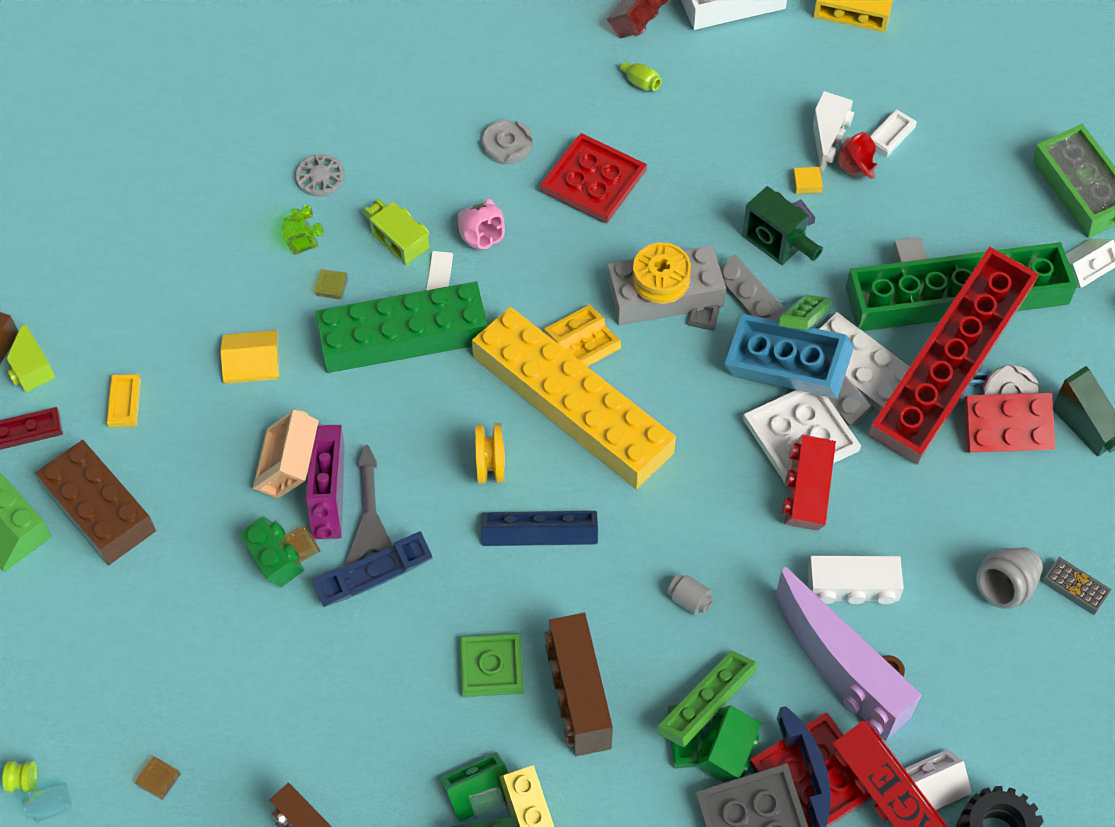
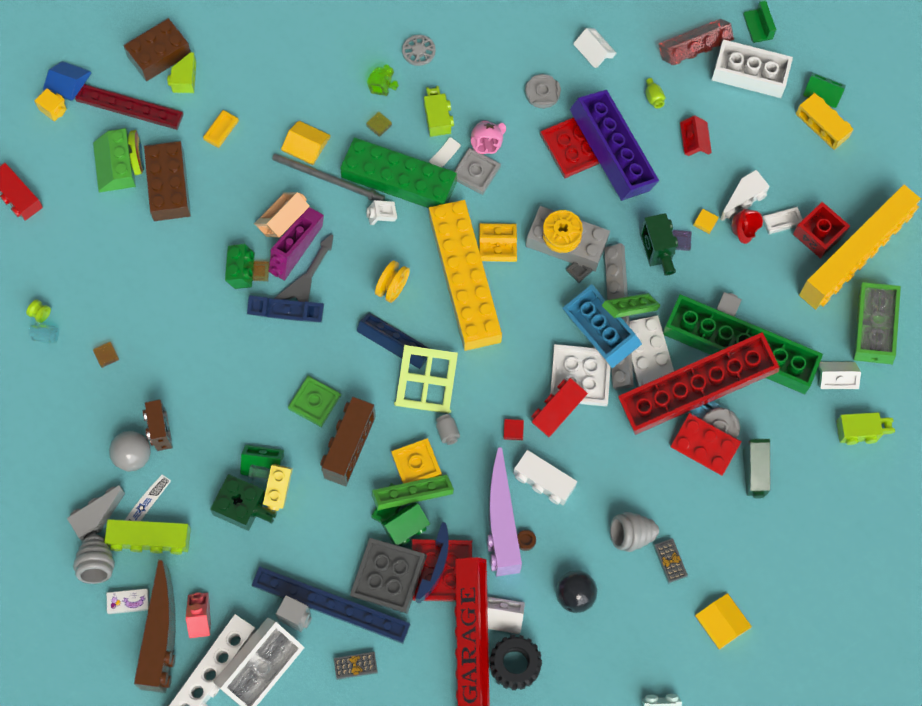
camera: 30 degrees right, 10 degrees up
(25, 490) = (135, 156): none -> lime tile
(311, 381) = (371, 194): none -> flat silver bar
(410, 381) = (381, 211): none -> white bracket
(495, 271) = (476, 171): none -> light grey tile
(532, 64) = (594, 47): none -> white panel
(618, 549) = (426, 379): none -> yellowish green window
(643, 149) = (614, 145): none -> dark purple brick
(681, 659) = (416, 462): none -> yellow plate
(722, 96) = (695, 136): none -> red panel
(770, 545) = (513, 429): none -> red tile
(945, 116) = (821, 230): none -> red brick
(1003, 112) = (860, 247): none -> yellow brick
(1003, 692) = (576, 591): none -> black piece

